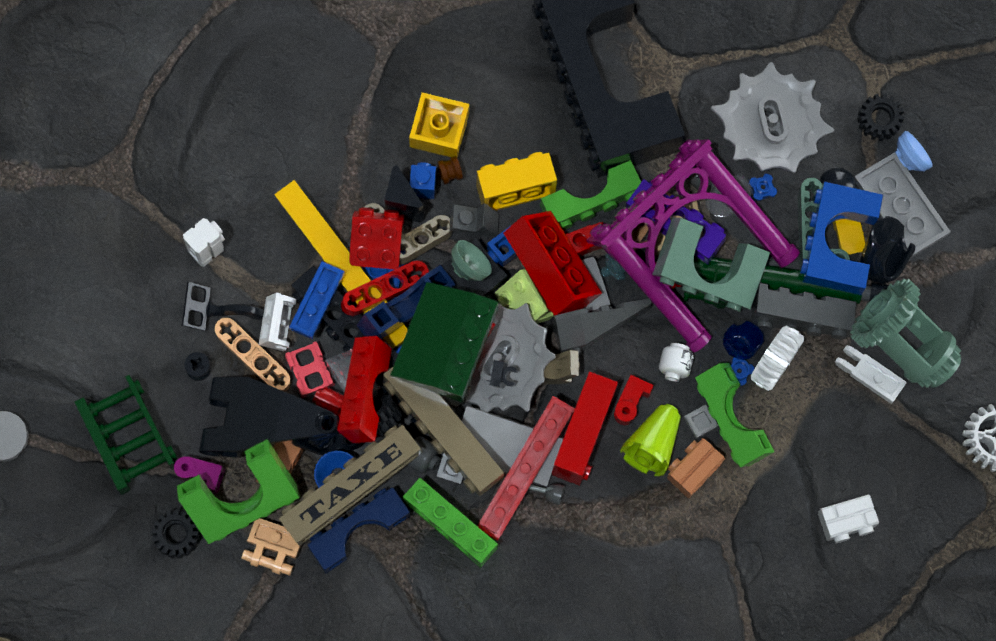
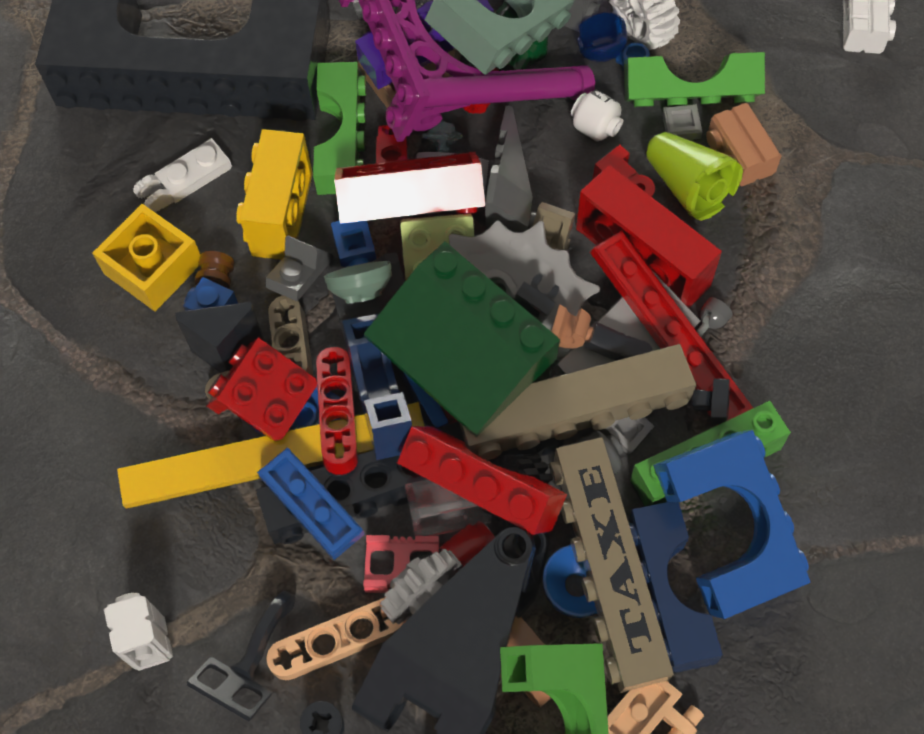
camera: 60 degrees left, 10 degrees down
(276, 321) = (309, 580): white hinge -> none
(291, 382) = (418, 584): none -> light grey gear
(438, 533) = (773, 560): none -> blue arch
(484, 511) = (714, 401): none -> black tile
(491, 406) = (577, 332): none -> piece
(515, 115) = (183, 176): none -> white hinge

